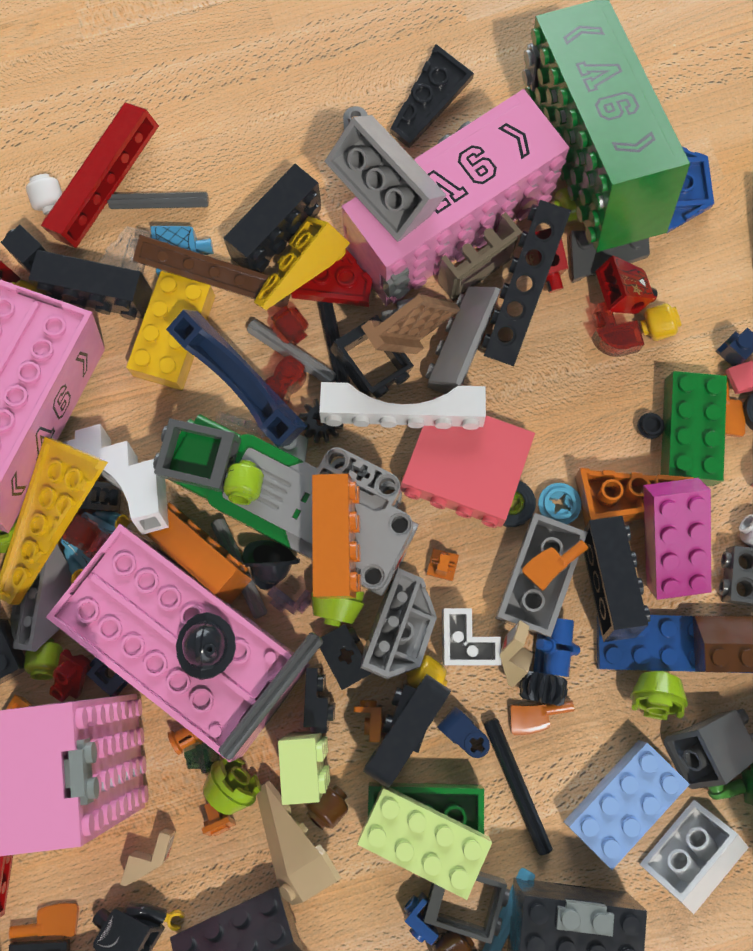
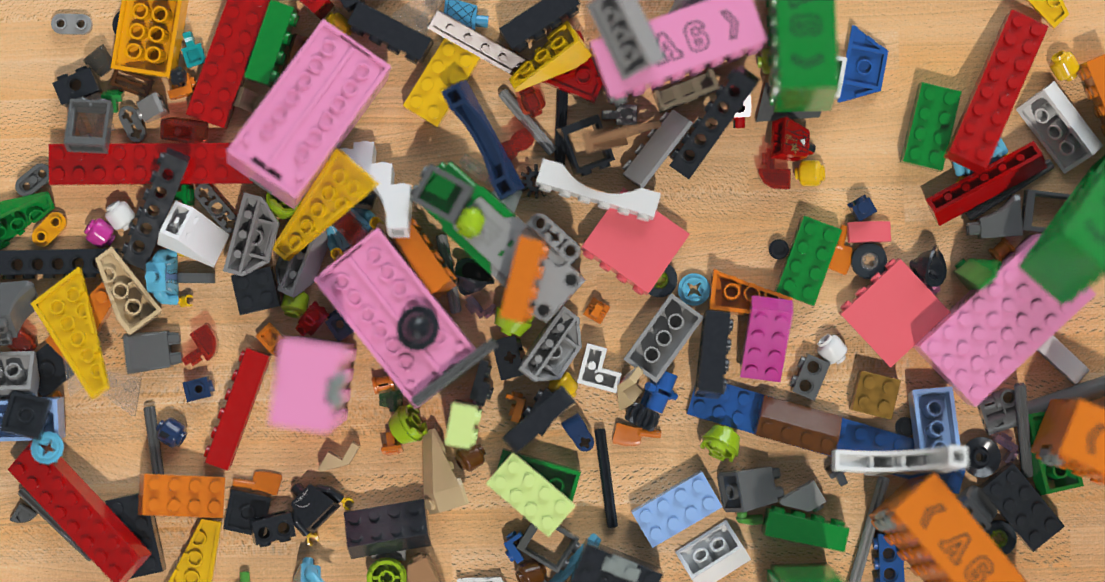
camera: 15 degrees right, 10 degrees up
(549, 564) = (670, 332): orange piece -> none

